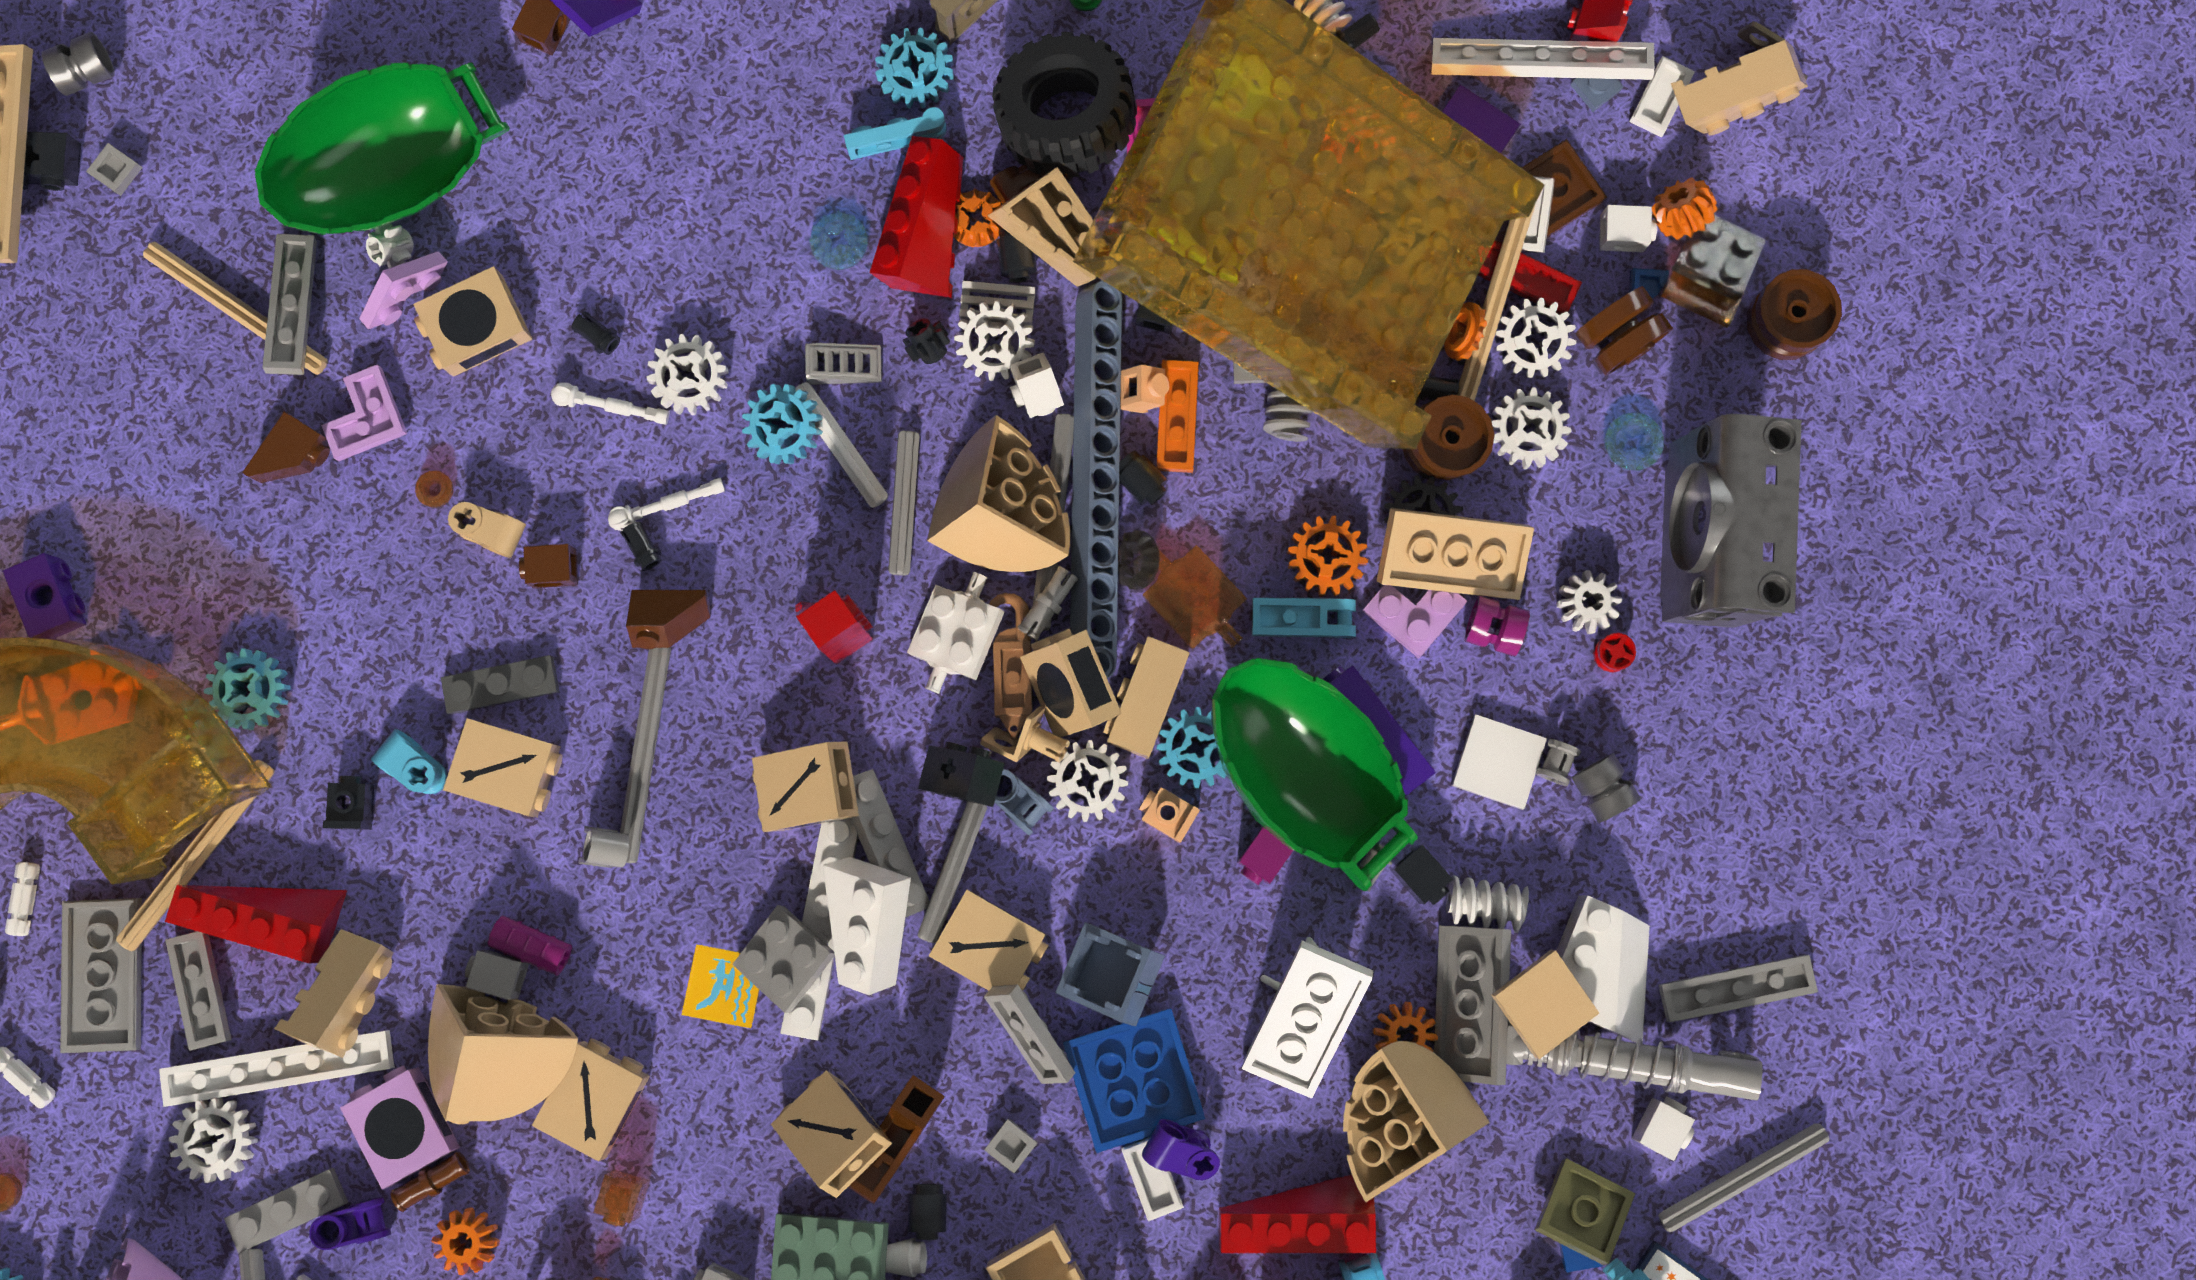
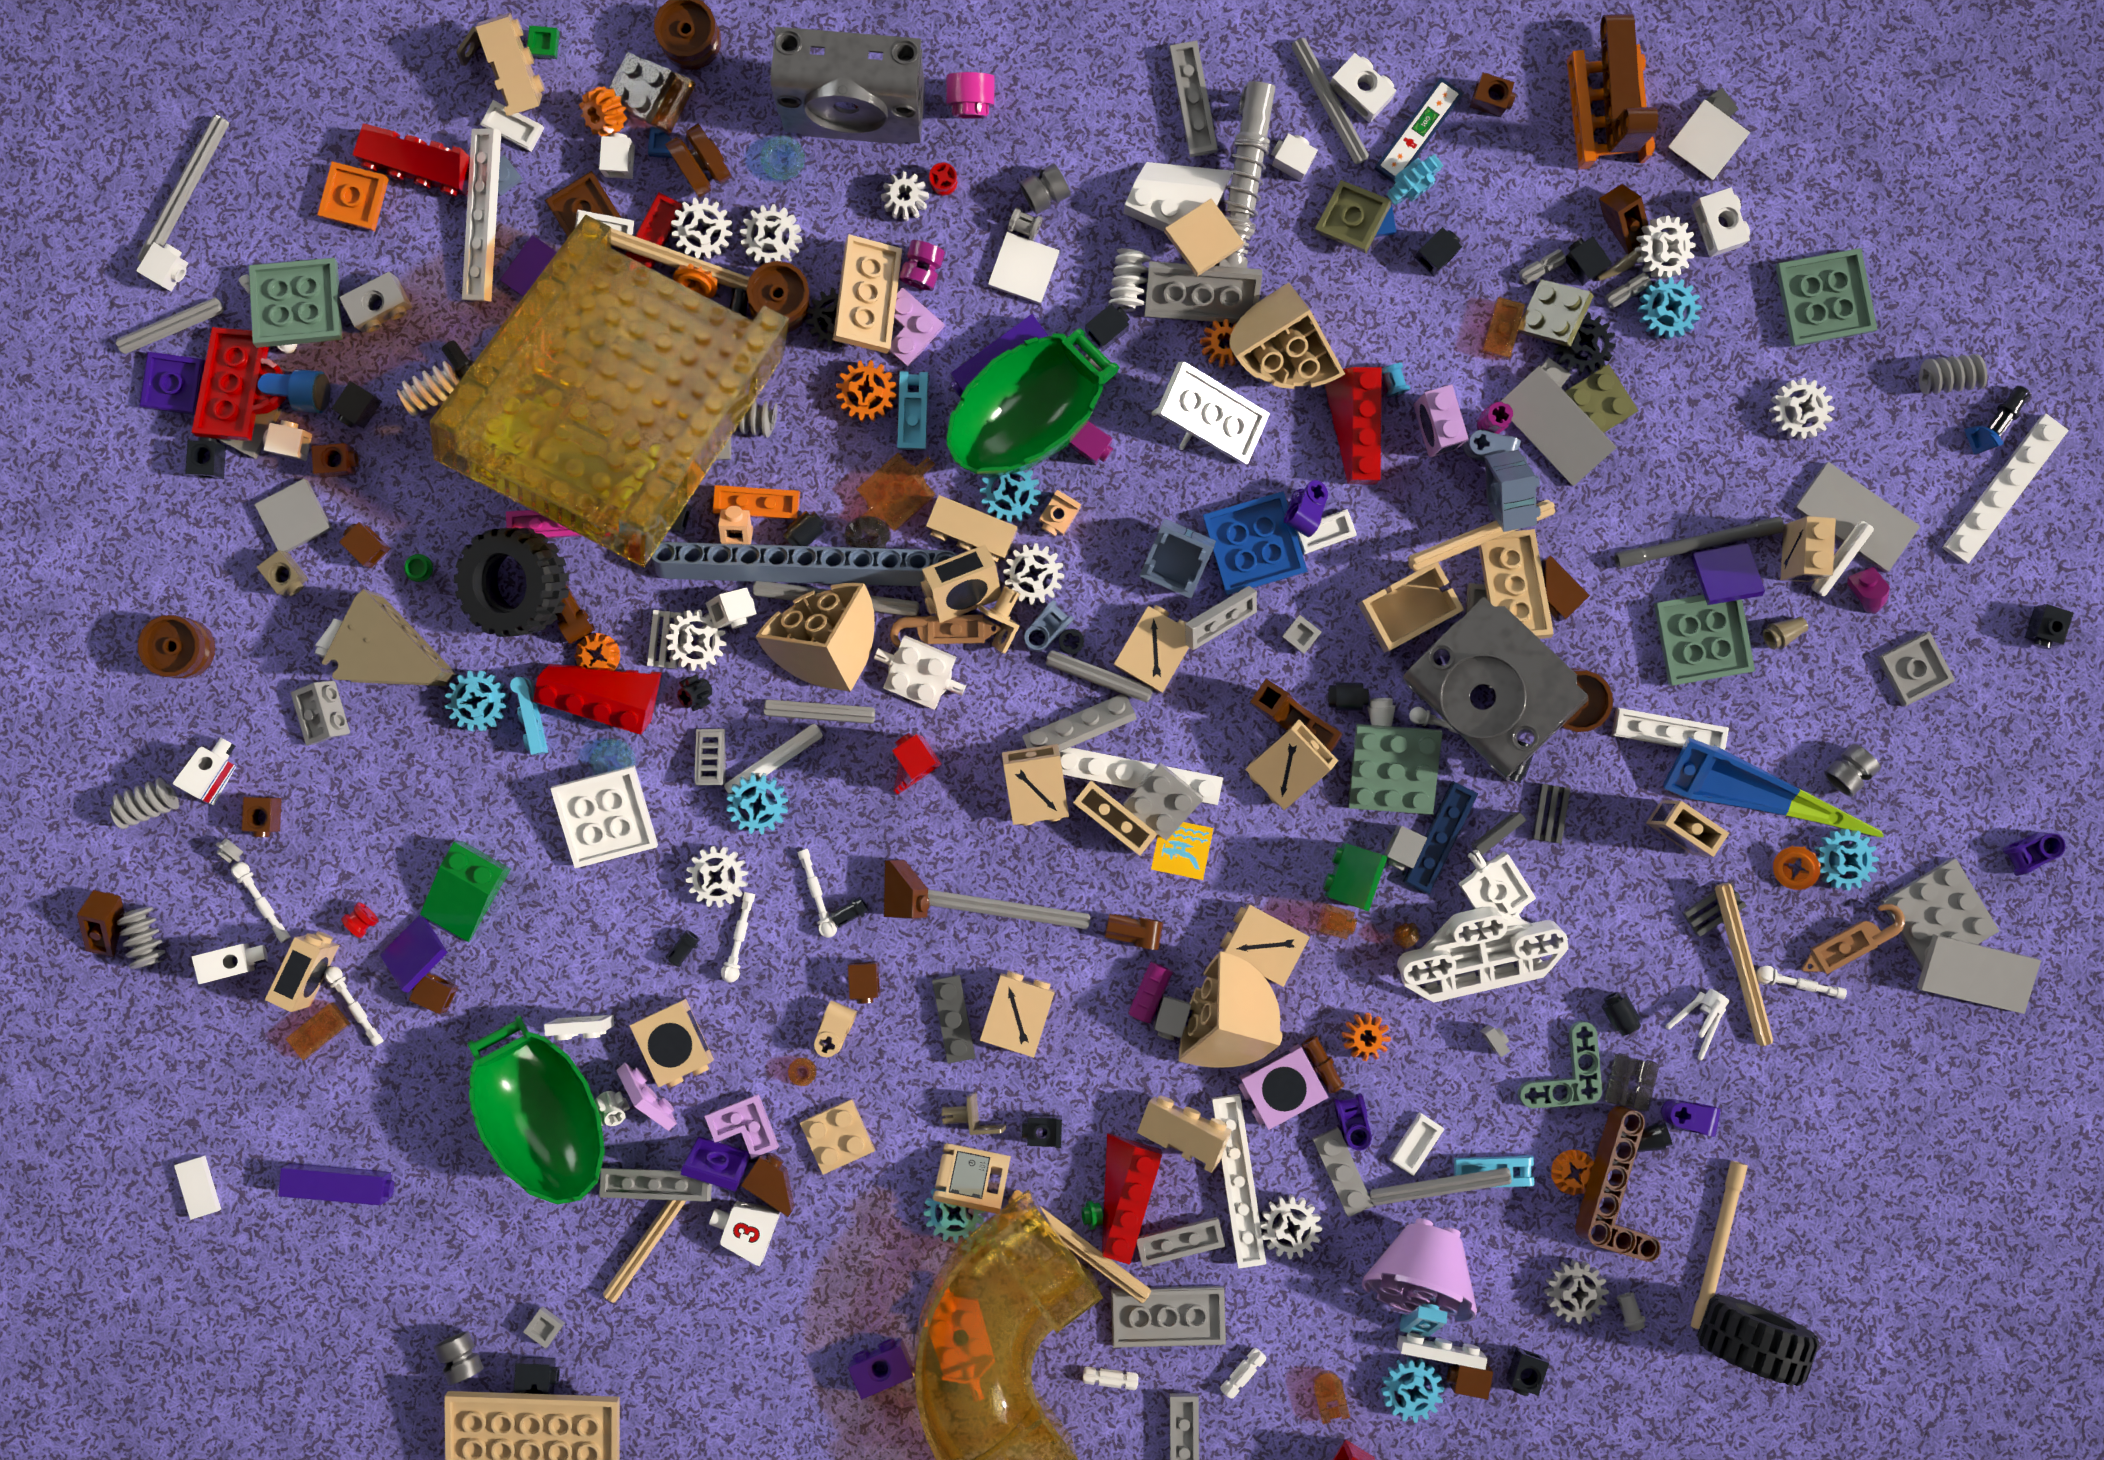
camera: 90 degrees left, 5 degrees up
(229, 420) = (746, 1229): none -> white torso
(236, 871) = (1092, 1215): none -> green plate
(289, 704) = (966, 1175): none -> tan container
(312, 379) = (716, 1163): none -> dark purple tile
(349, 536) = (837, 1136): none -> tan plate
(371, 708) = (969, 1115): none -> dark tan bracket
(406, 760) = (1010, 1089): medium azure piece -> none
(494, 199) = (588, 1026): none -> white plate
(605, 848) = (1079, 934): light grey piece -> none
(610, 933) = (1141, 931): none -> reddish brown piece
(674, 58) = (463, 889): none -> green slope
(678, 1223) = (1354, 876): none -> green slope
(760, 893) = (1115, 818): none -> tan brick
(765, 230) = (604, 816): none -> white plate
(866, 922) = (1136, 738): white wedge -> none
(961, 774) = (1028, 667): black brick -> none
(988, 828) = (1068, 650): none -> black bush
(1015, 259) = (627, 623): black brick -> none
(1047, 603) = (899, 601): light grey pin -> none
(1049, 223) = (606, 592): tan wedge -> none
(1729, 686) = (970, 94): none -> dark pink piece
(1742, 1228) = (1369, 102): none -> white brick
(1773, 132) = (543, 42): none -> green plate

